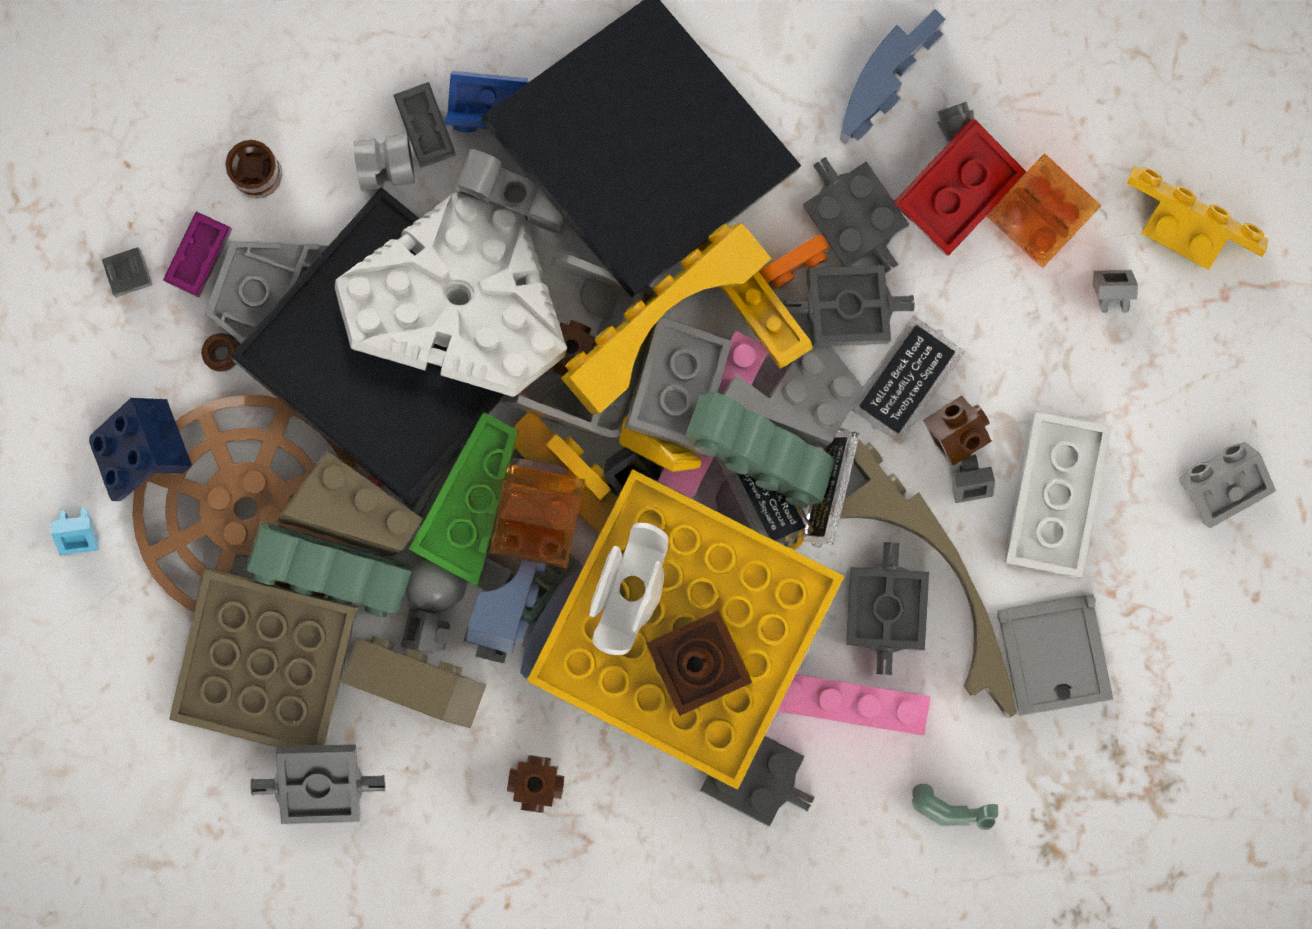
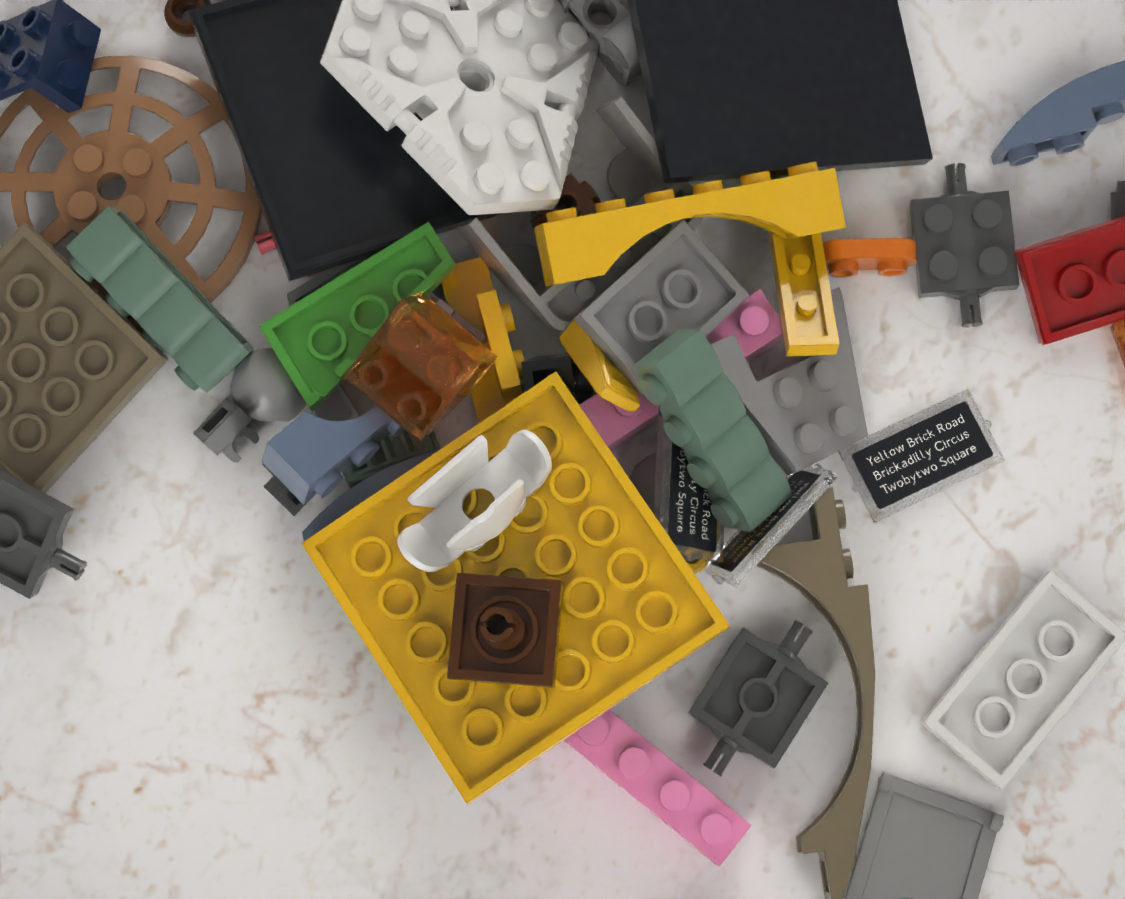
camera: 30 degrees right, 5 degrees down
(350, 508) = (221, 245): dark tan wedge -> none
(413, 682) = (179, 479): dark tan wedge -> none
(535, 767) = (265, 674): reddish brown brick -> none
(765, 785) = (506, 817): dark grey plate -> none
(849, 305) = (902, 336): dark grey plate -> none
(958, 429) = (951, 541): reddish brown brick -> none
(972, 482) = (935, 609): dark grey tile -> none

